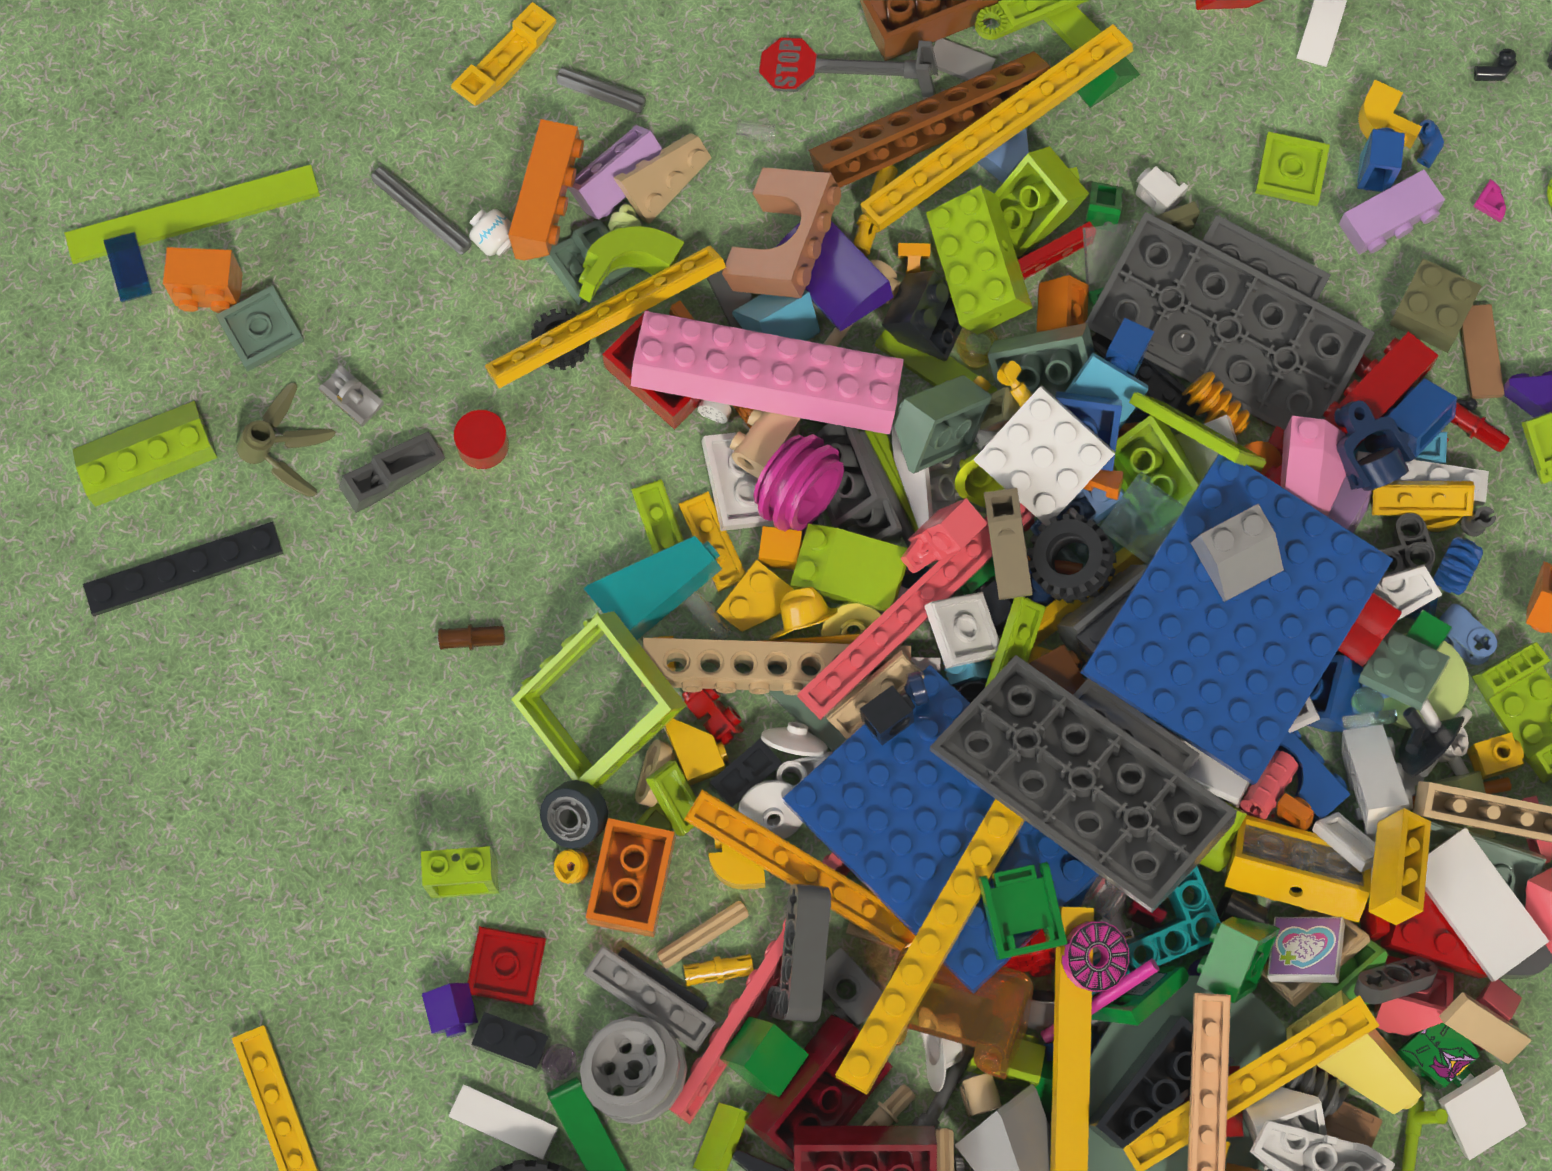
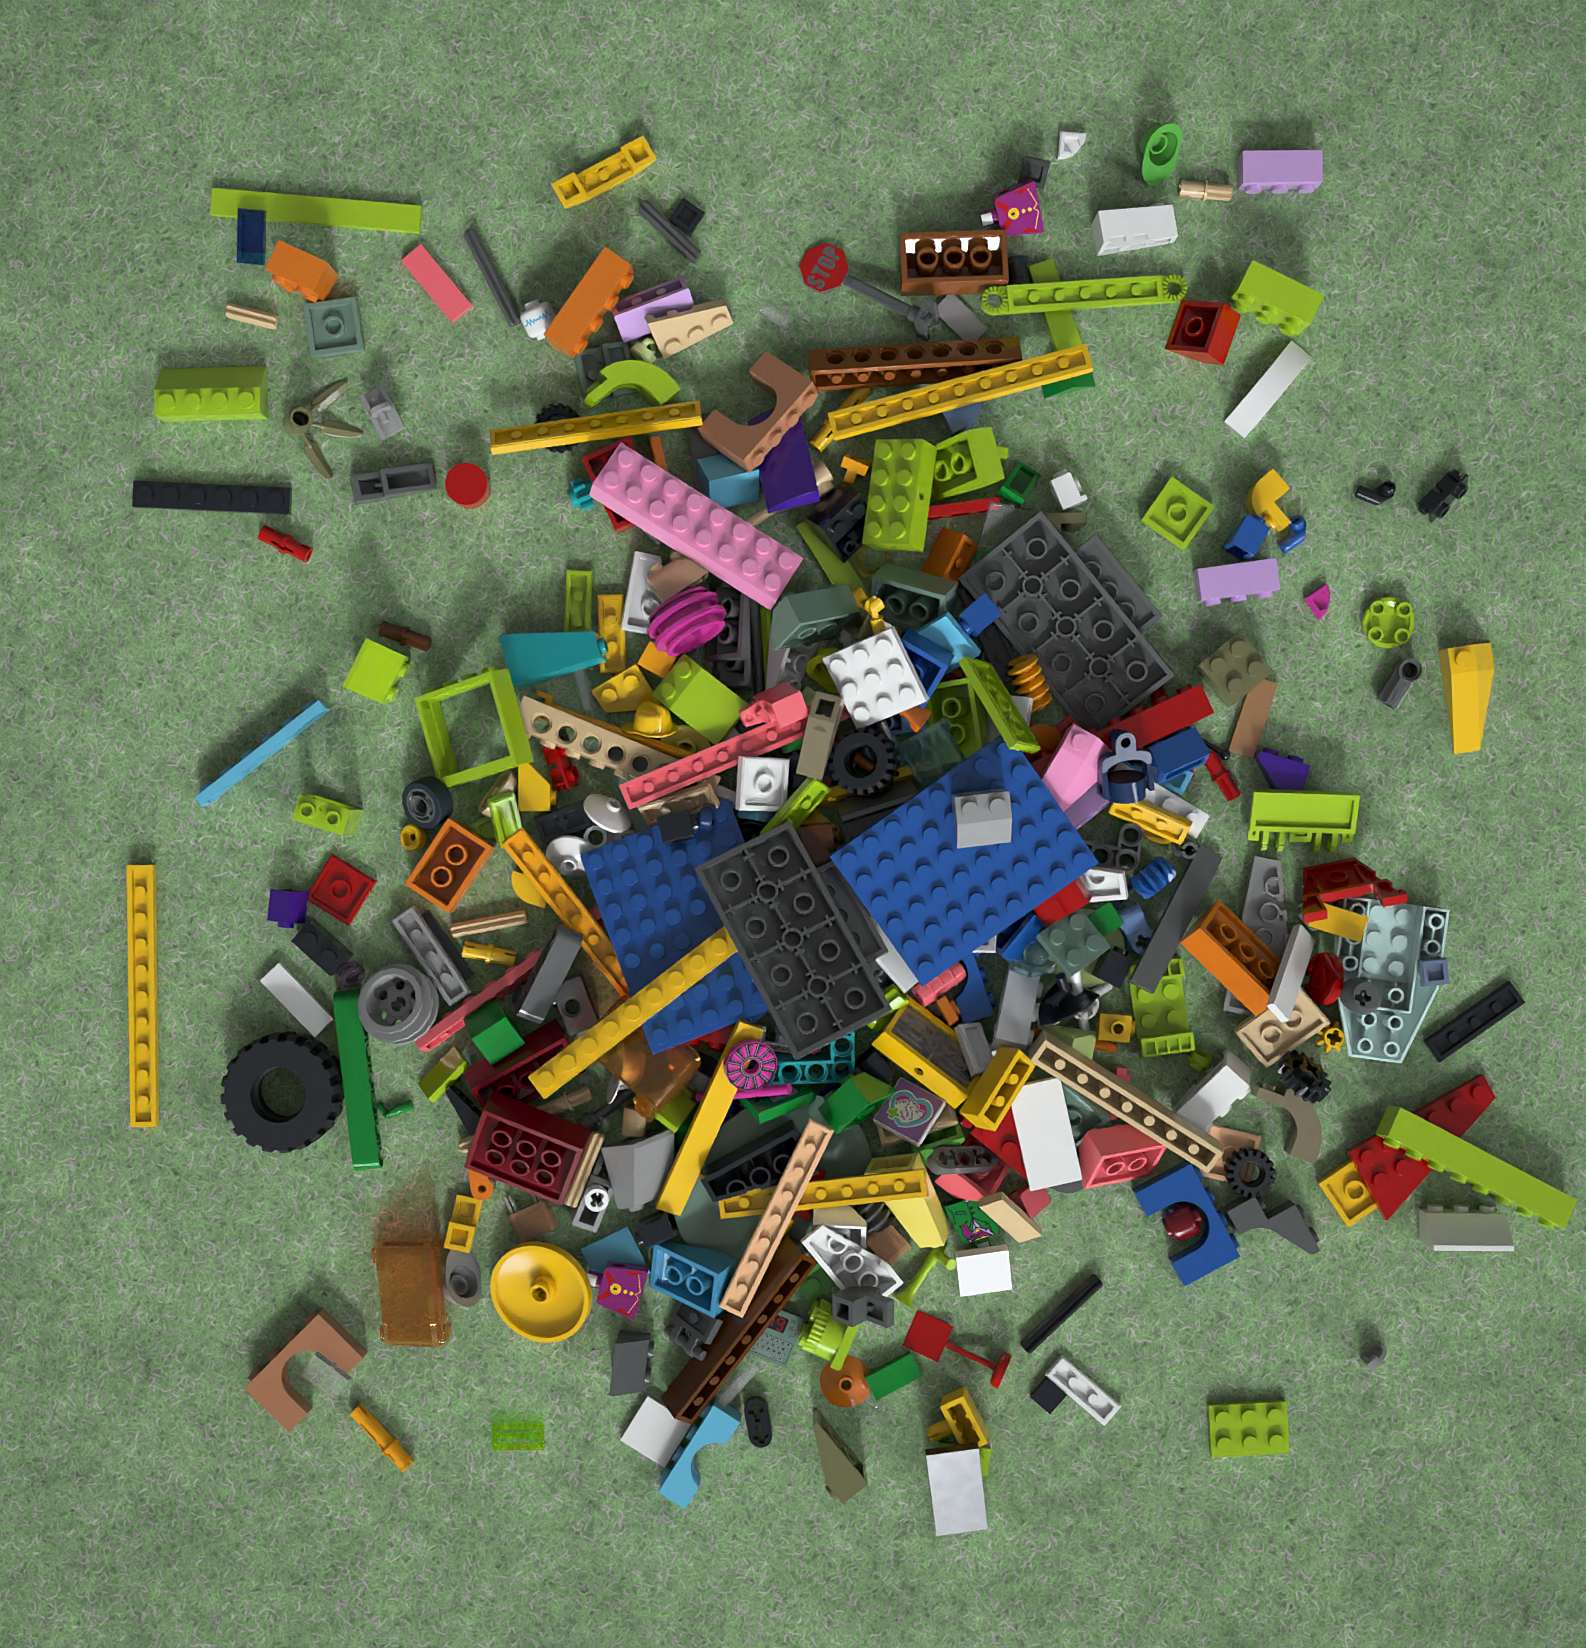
camera: 20 degrees right, 15 degrees up
(158, 352) = (251, 316): none -> tan axle
(289, 586) = (285, 543): none -> red pin
(356, 825) = (253, 758): none -> medium azure plate
(359, 239) = (436, 283): none -> coral tile
(457, 682) = (377, 672): none -> lime slope
(614, 68) = (686, 217): none -> black tile
(616, 398) = (580, 494): none -> teal gear
(1021, 905) = (709, 1010): green container -> none
(1462, 684) = (1113, 966): none -> black brick
(1507, 602) = (1175, 919): none -> dark grey tile

